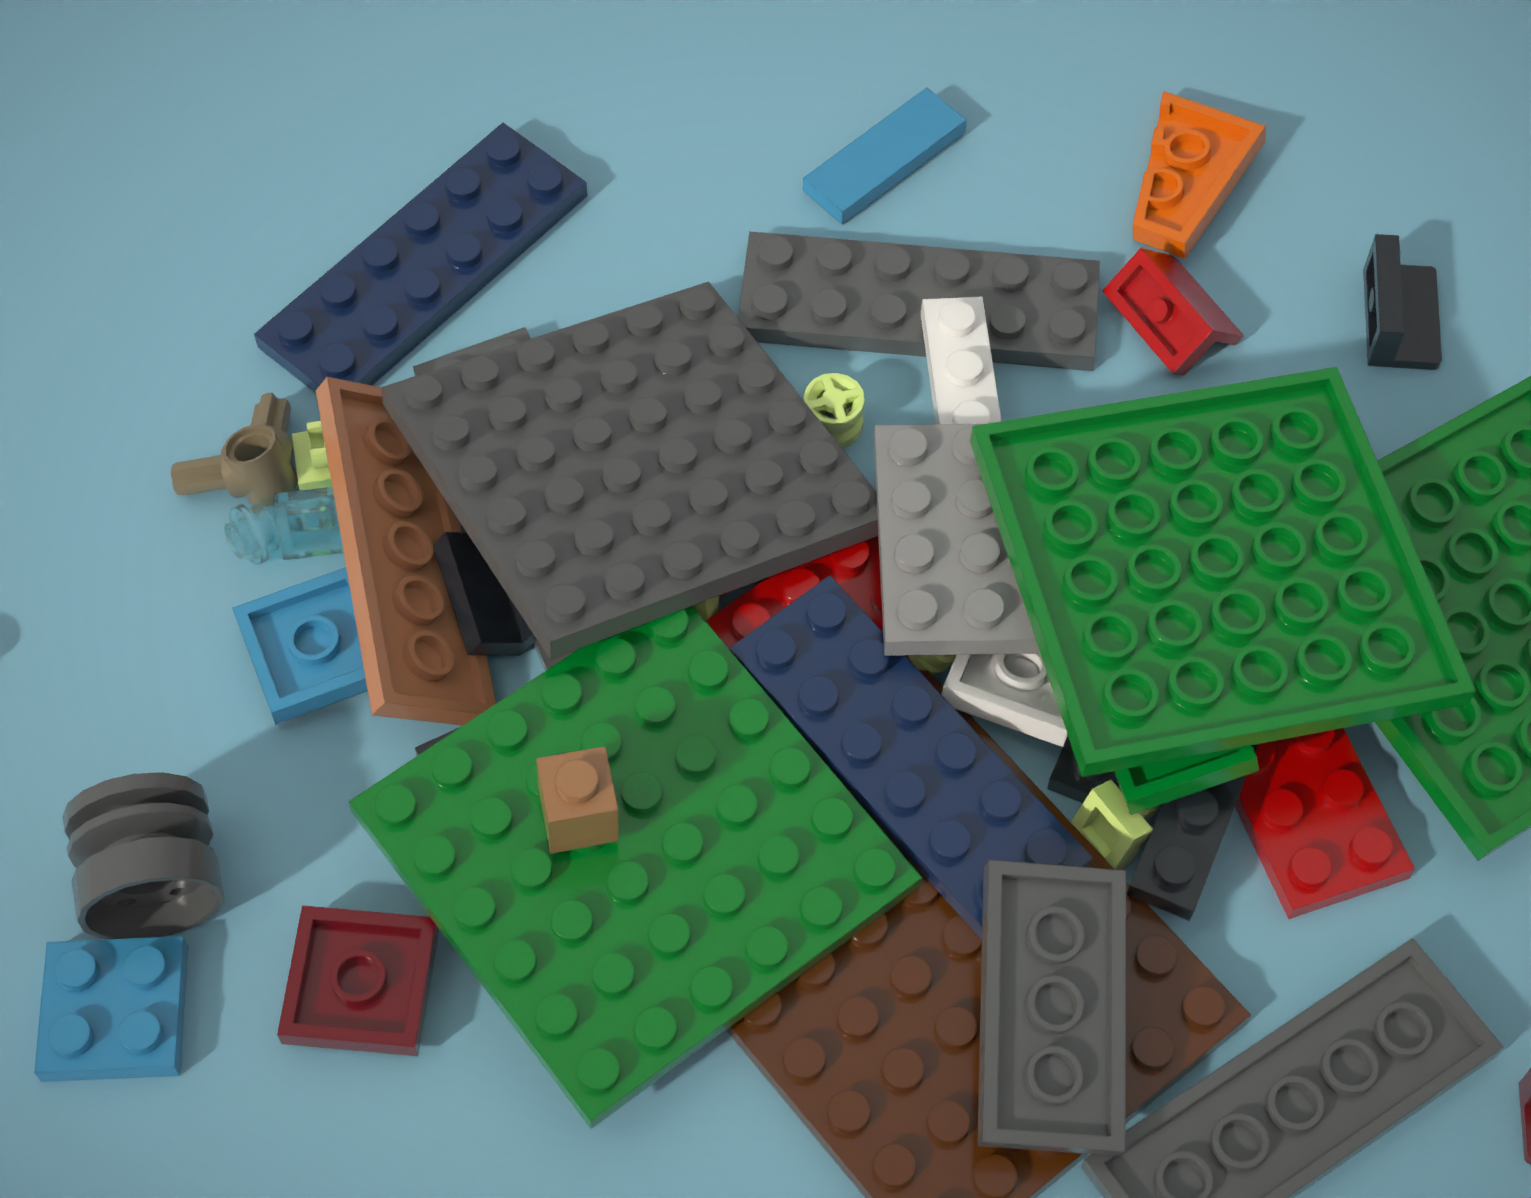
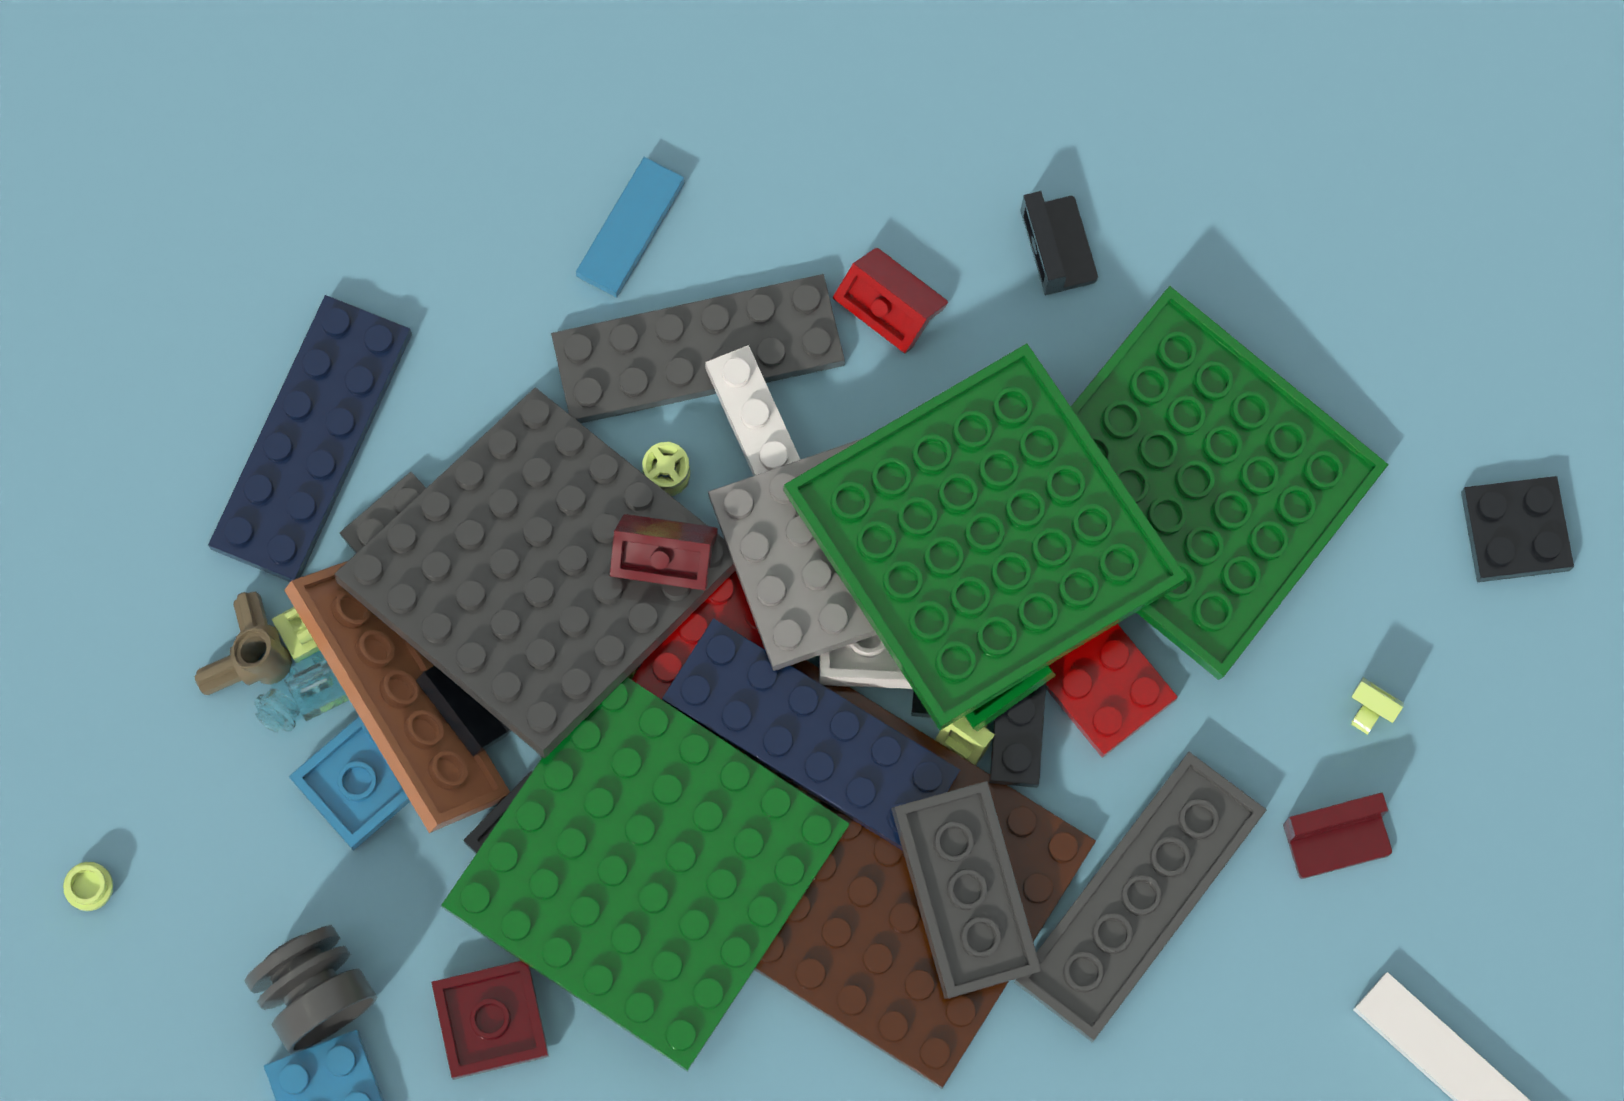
camera: 20 degrees left, 15 degrees up
(577, 799) = (603, 858): medium nougat brick -> none
(789, 471) = (662, 551): none -> dark red panel
(1191, 172) = (869, 169): orange wing -> none

